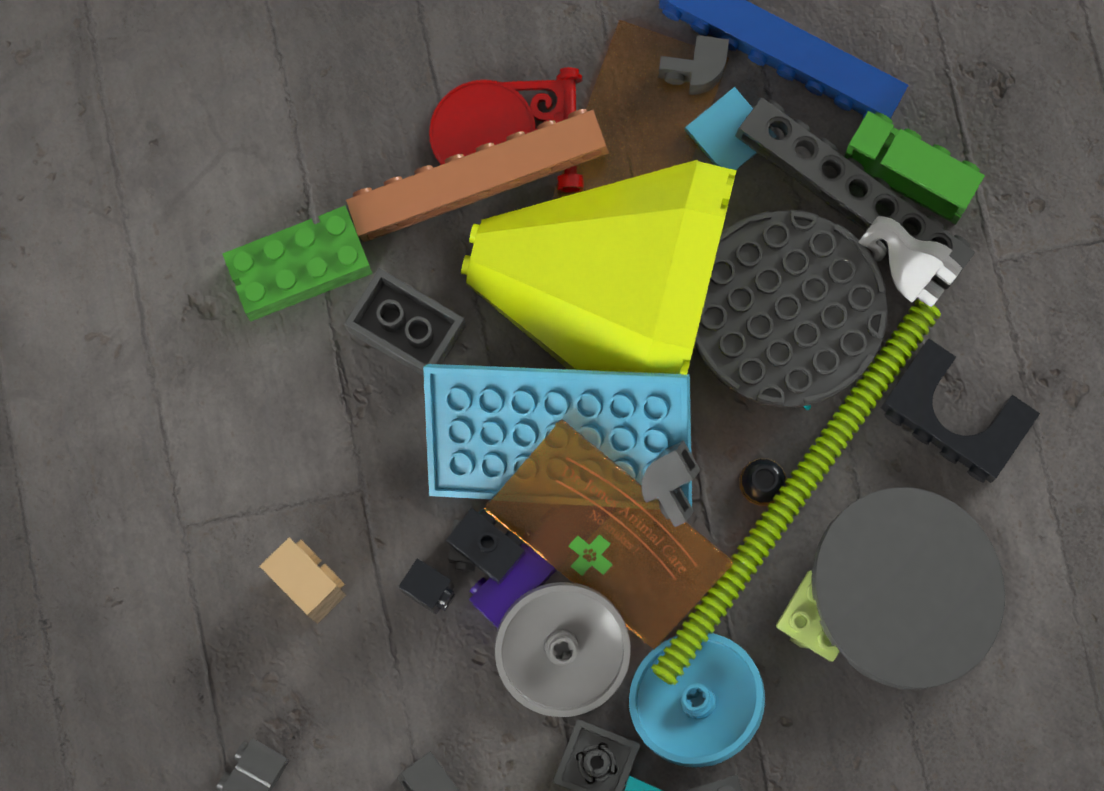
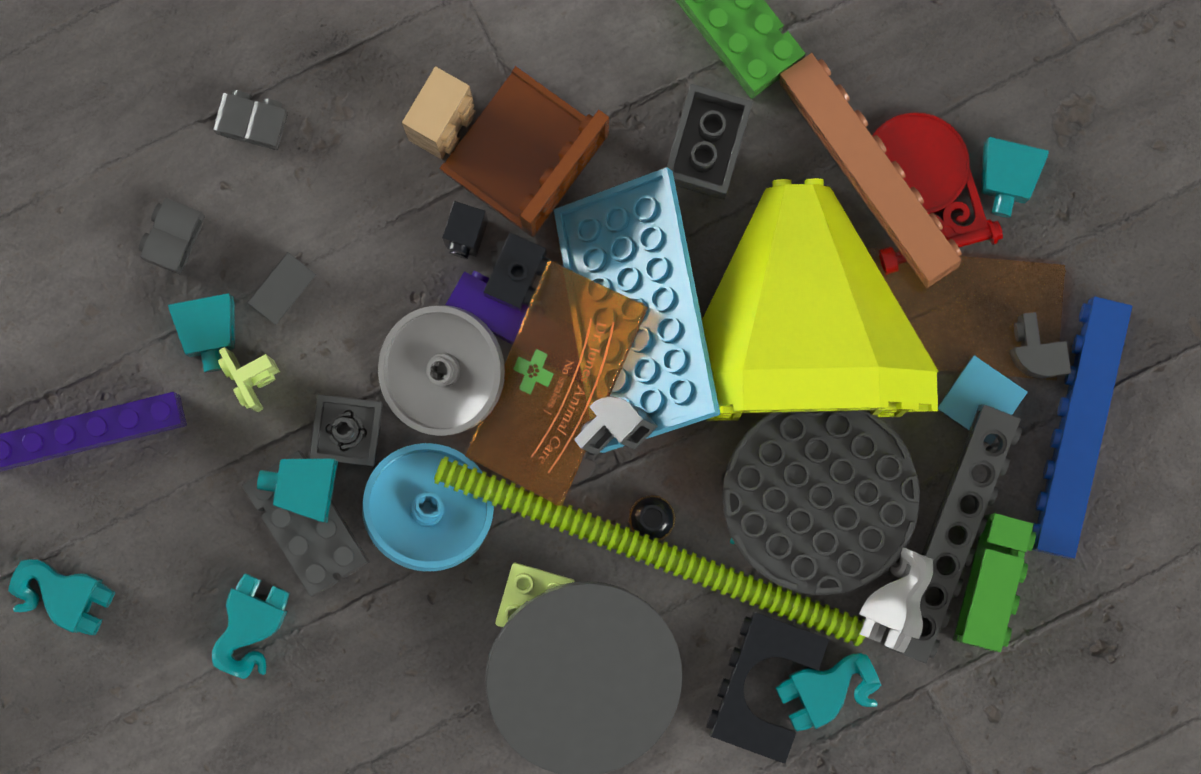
camera: 70 degrees right, 5 degrees up
(363, 507) = (525, 151): none -> dark orange bracket
(516, 45) = (1010, 173): none -> teal torso
(977, 357) = (825, 691): none -> teal hips

